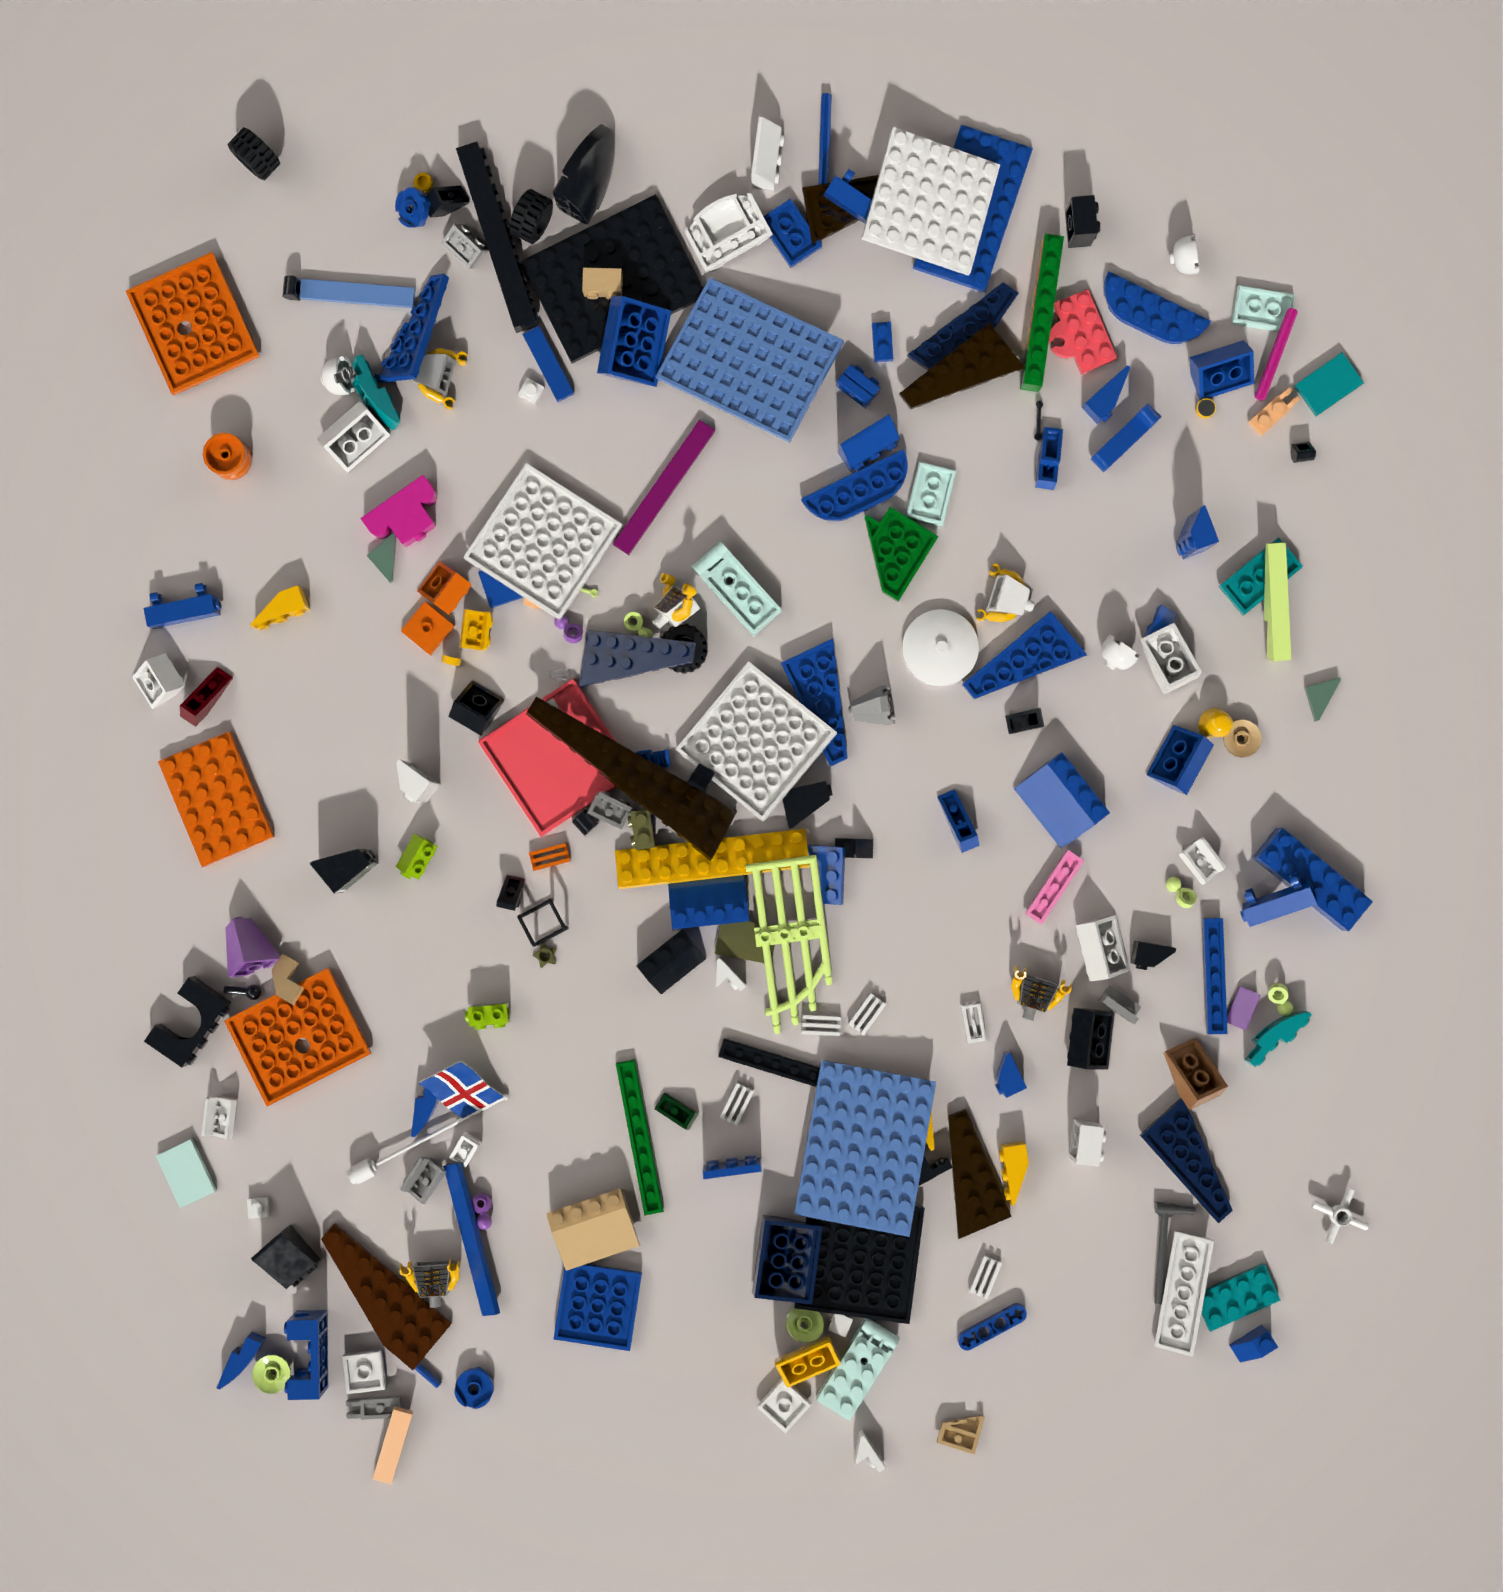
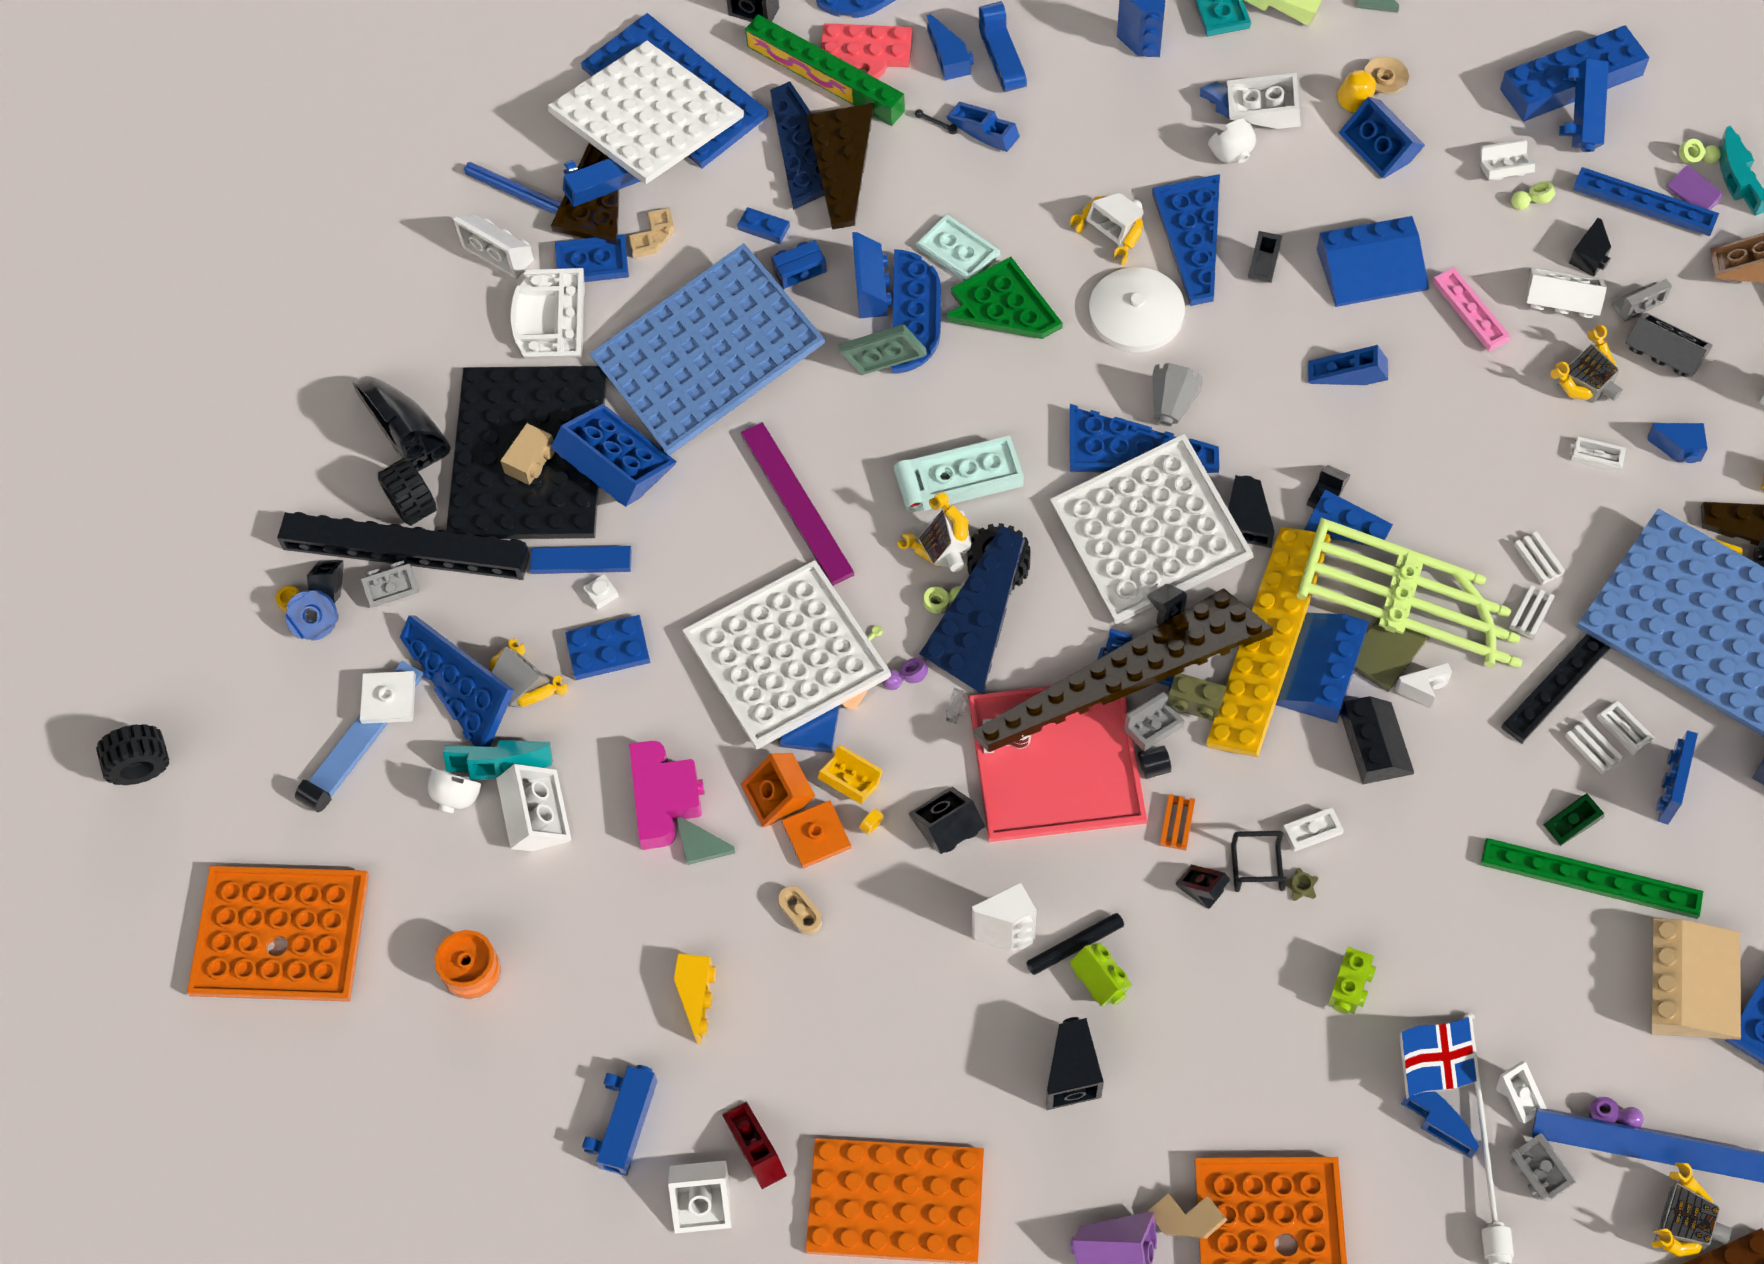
camera: 60 degrees left, 25 degrees down
(367, 644) = (801, 911): none -> tan plate
(381, 295) = (387, 697): none -> white plate
(433, 830) = (1075, 943): none -> black axle
(492, 419) = (607, 647): none -> blue plate
(585, 946) = (1313, 829): none -> white plate
(768, 1104) = (1622, 730): none -> white tile
(803, 486) = (882, 349): none -> sand green tile
(828, 267) = (651, 241): none -> tan tile

